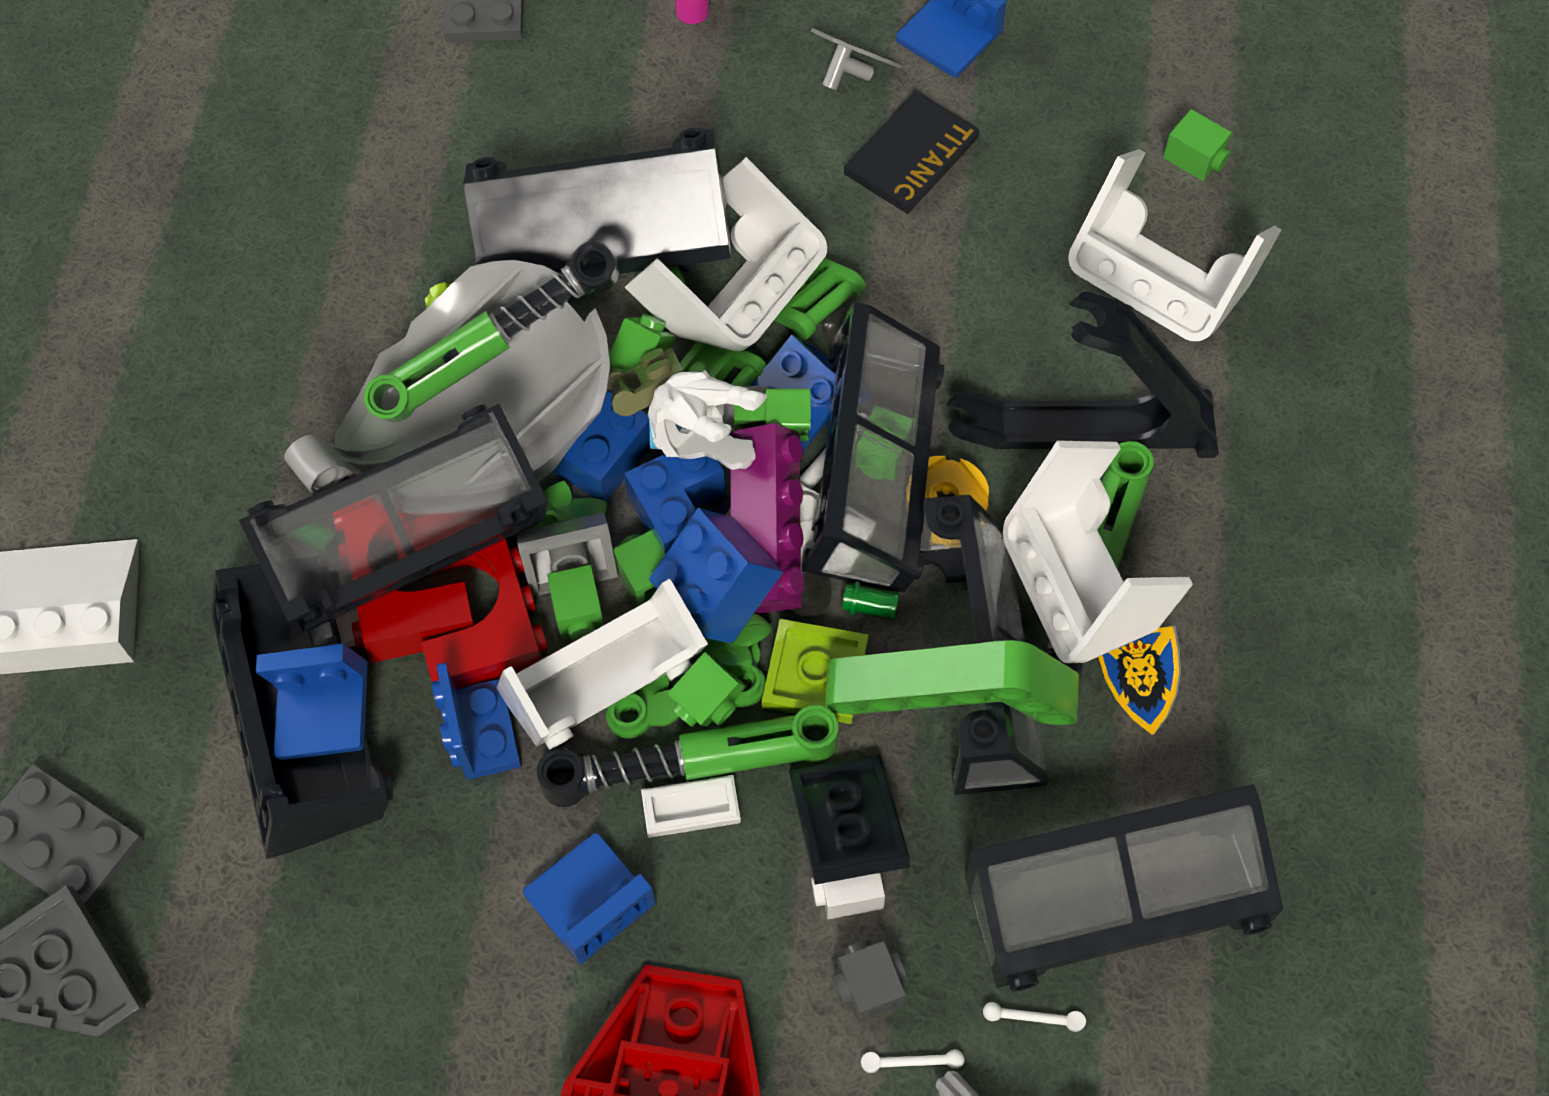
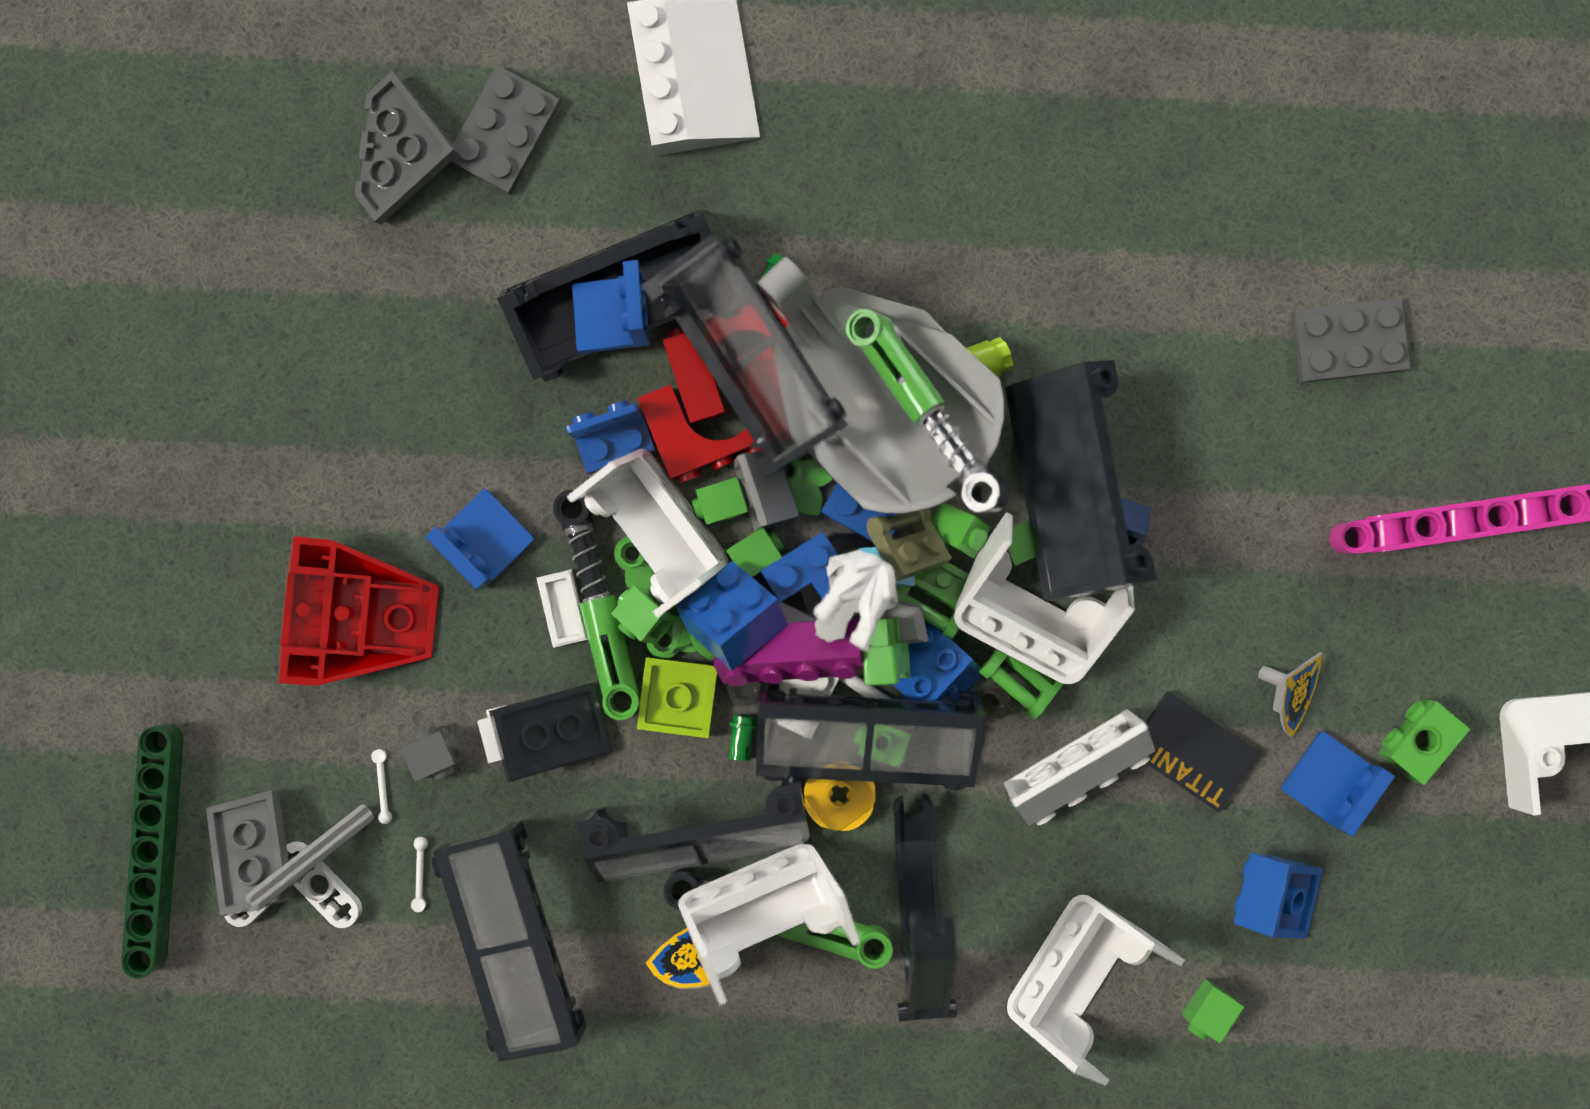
camera: 85 degrees right, 25 degrees up
(919, 241) = (1080, 767): none -> white slope
(956, 676) = (641, 811): bright green beam -> none
(1069, 84) = (1277, 896): none -> blue slope

